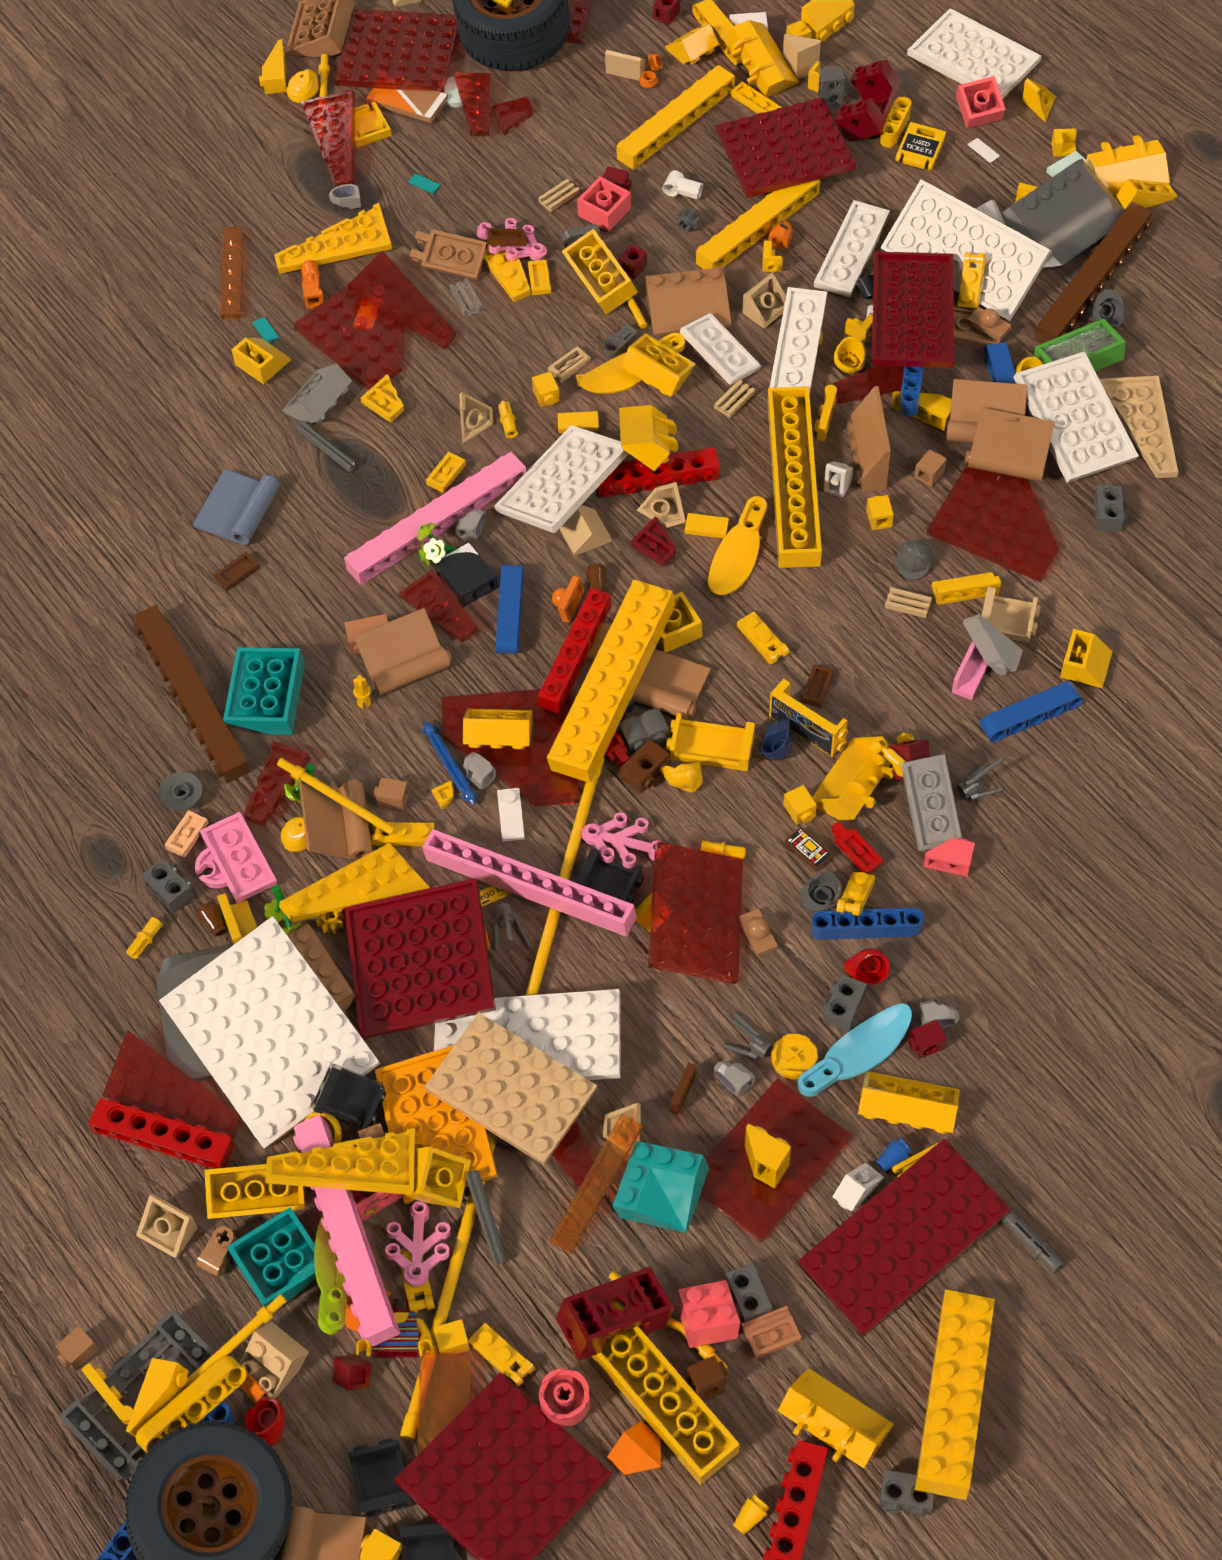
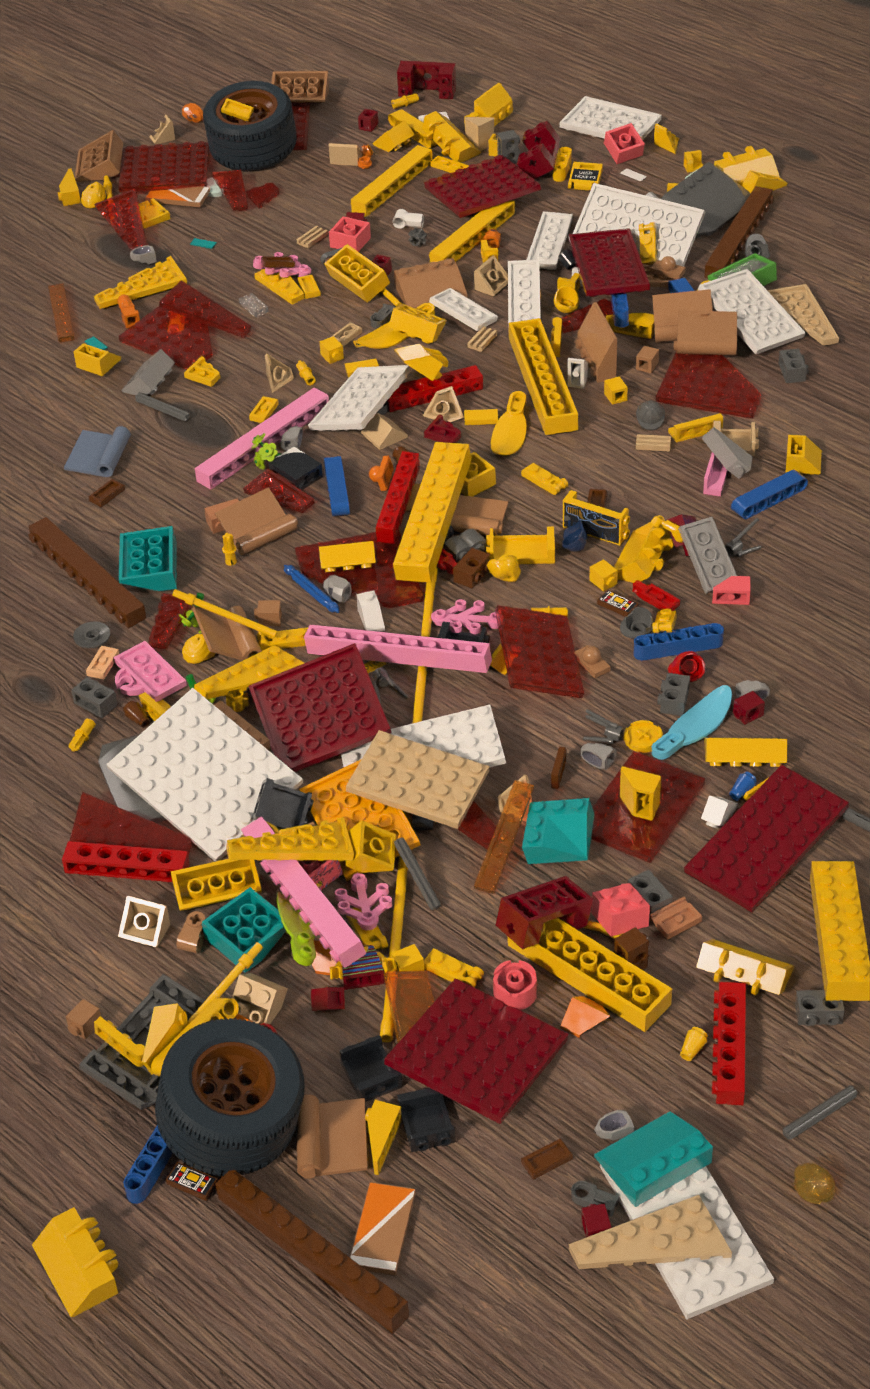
camera: 10 degrees left, 15 degrees down
(444, 794) = (311, 609): yellow tile -> none
(450, 254) = (234, 278): medium nougat tile -> none

